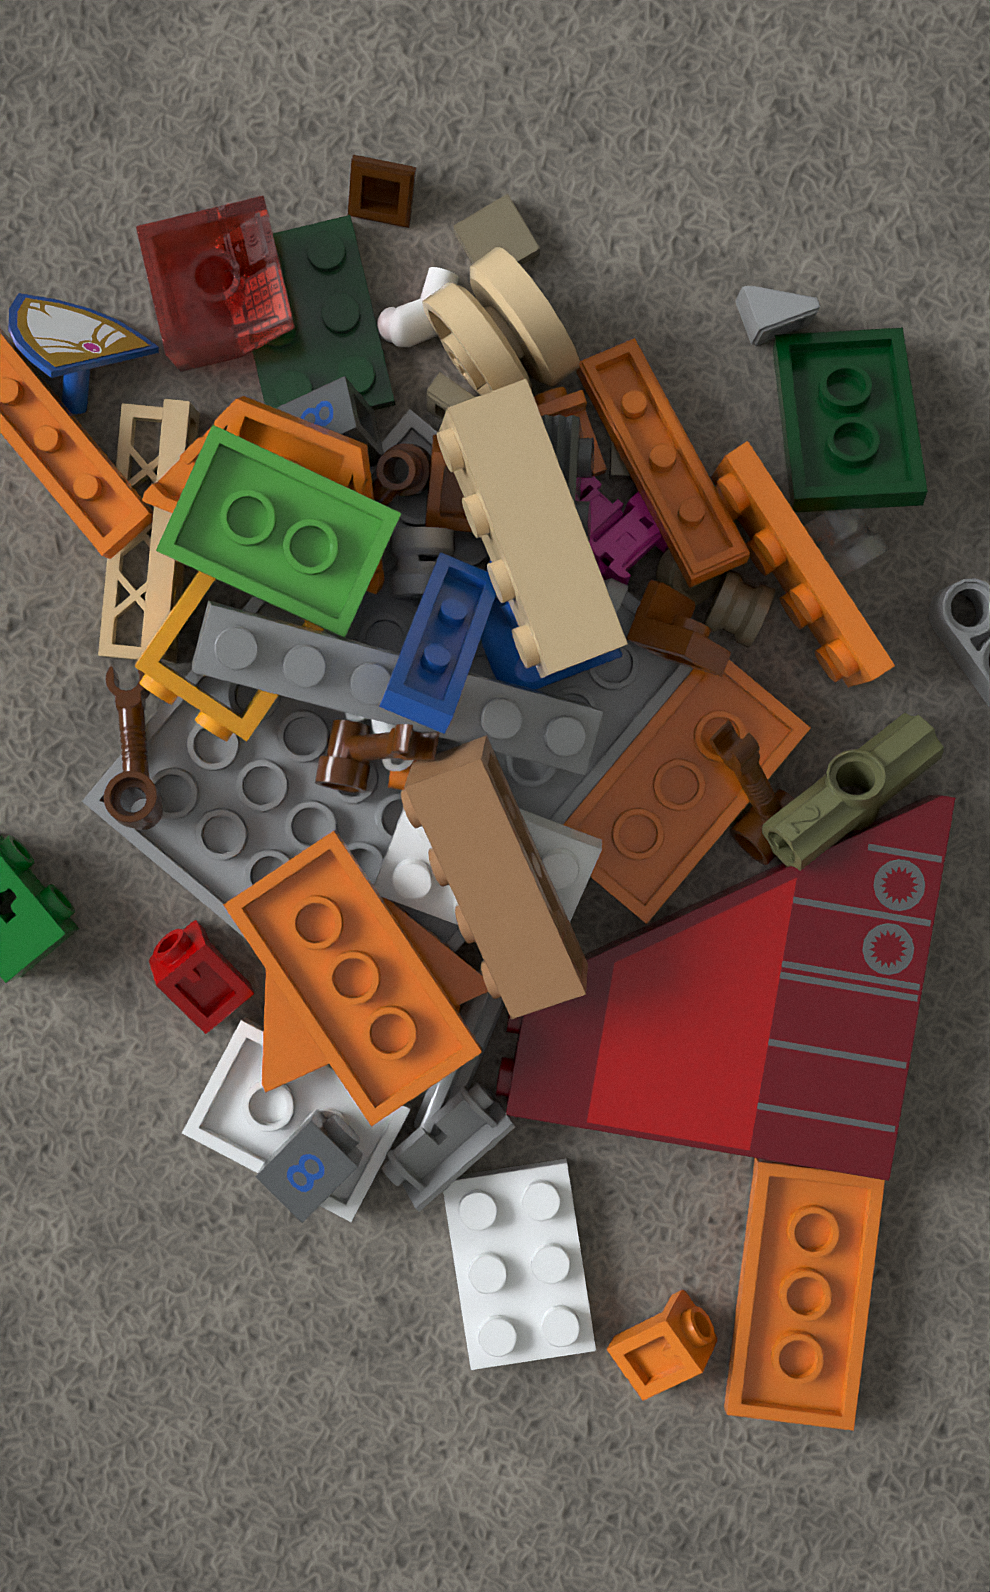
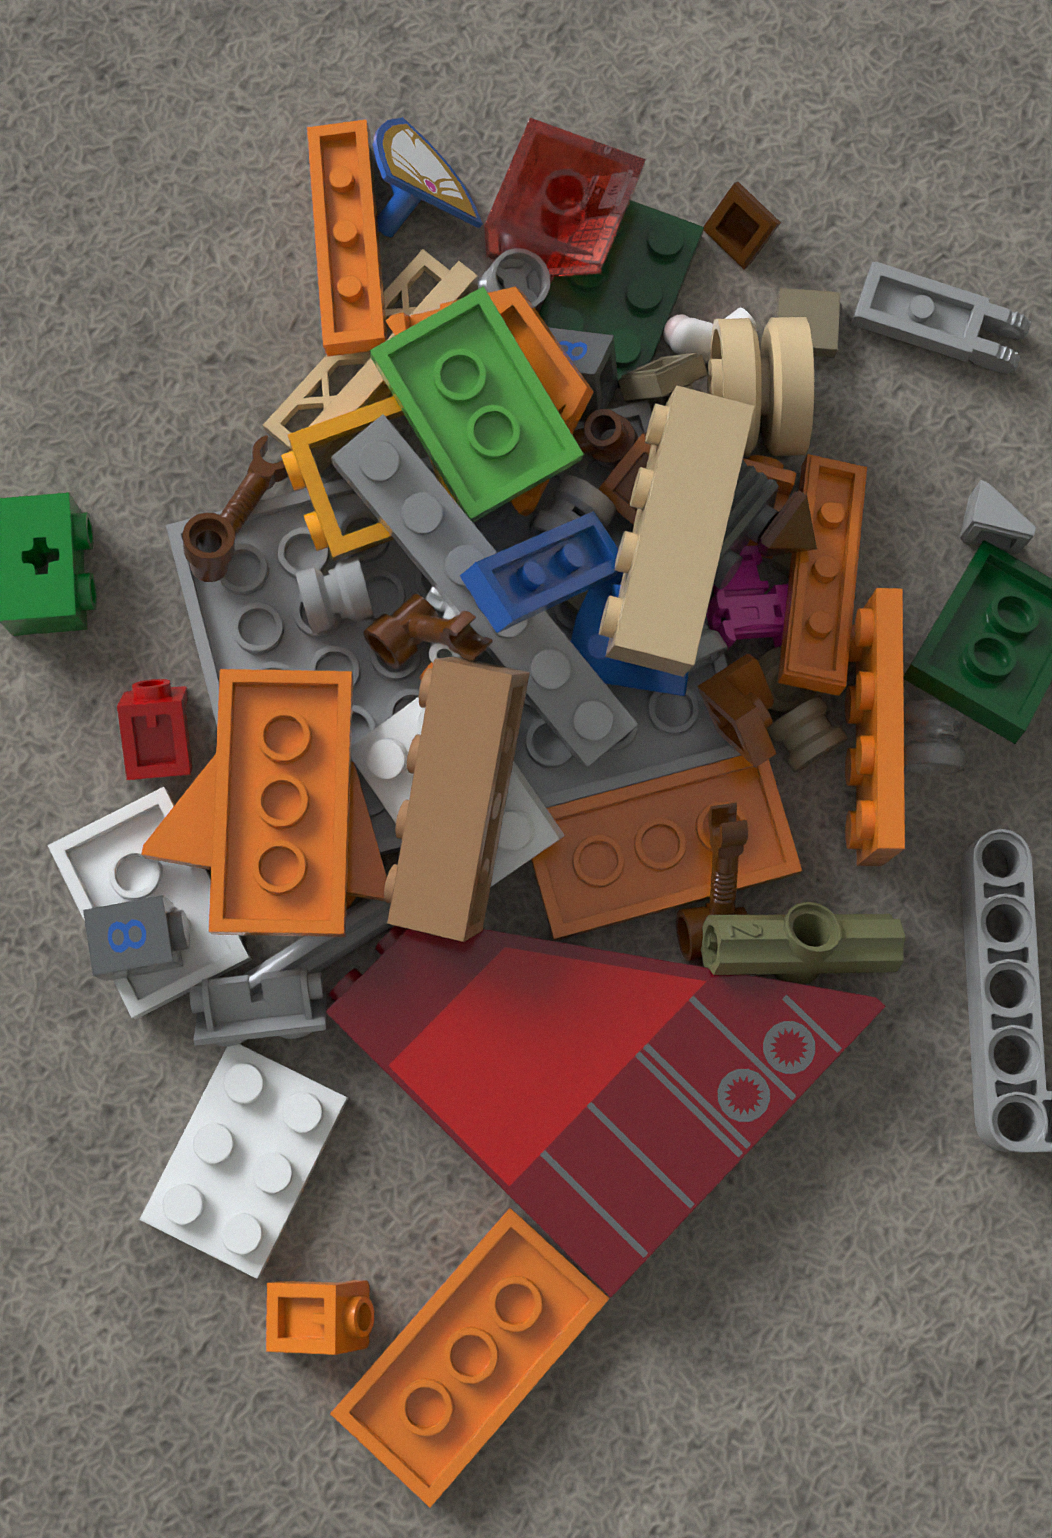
camera: 30 degrees right, 10 degrees down
(227, 373) = (518, 269): none -> light grey wheel
(272, 764) = (336, 594): none -> light grey wheel
(410, 381) = (662, 376): none -> dark tan tile
(604, 158) = (938, 317): none -> light grey hinge
(612, 445) = (790, 529): none -> reddish brown slope

